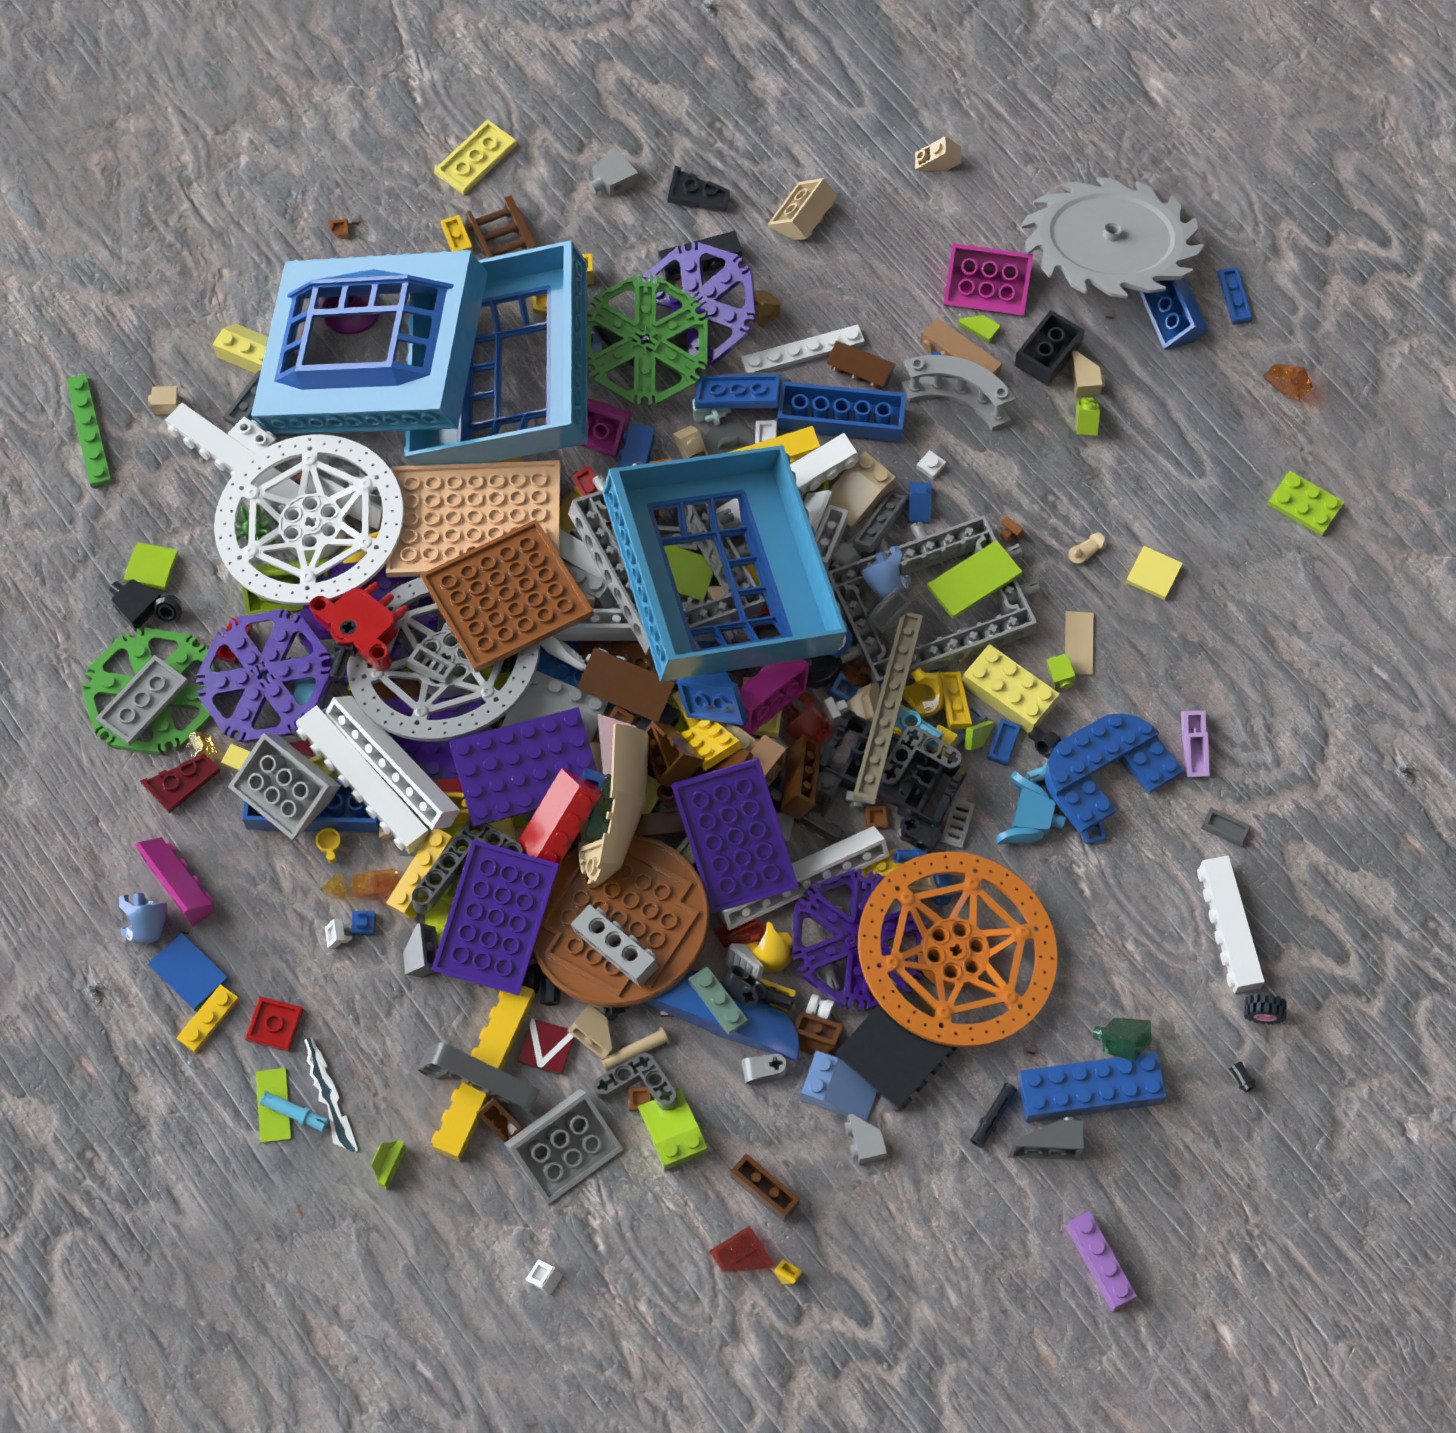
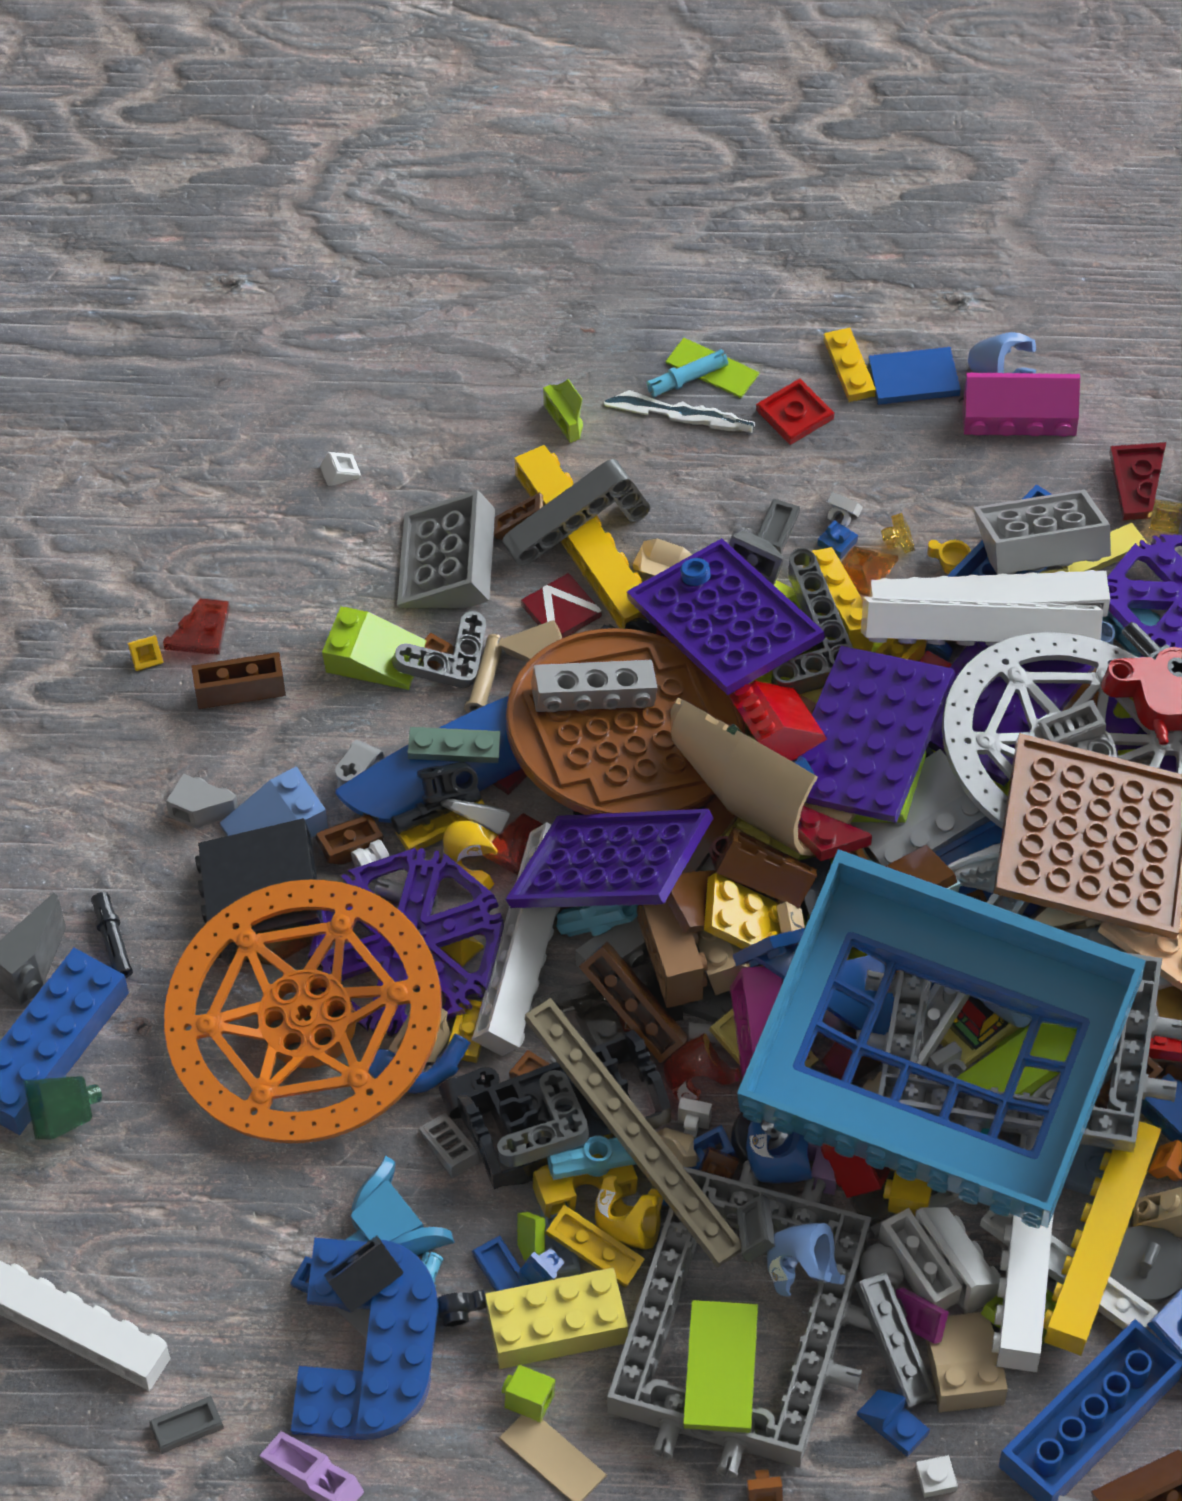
camera: 130 degrees right, 10 degrees down
(380, 966) = (779, 523): none -> dark grey tile
(466, 1010) = (658, 555): none -> tan slope
(475, 959) = (695, 571): none -> blue tile
(687, 723) = (789, 917): none -> tan tile
(857, 517) = (923, 1316): none -> magenta tile
(990, 713) = (541, 1267): none -> blue brick
(1084, 782) = (363, 1274): none -> black panel

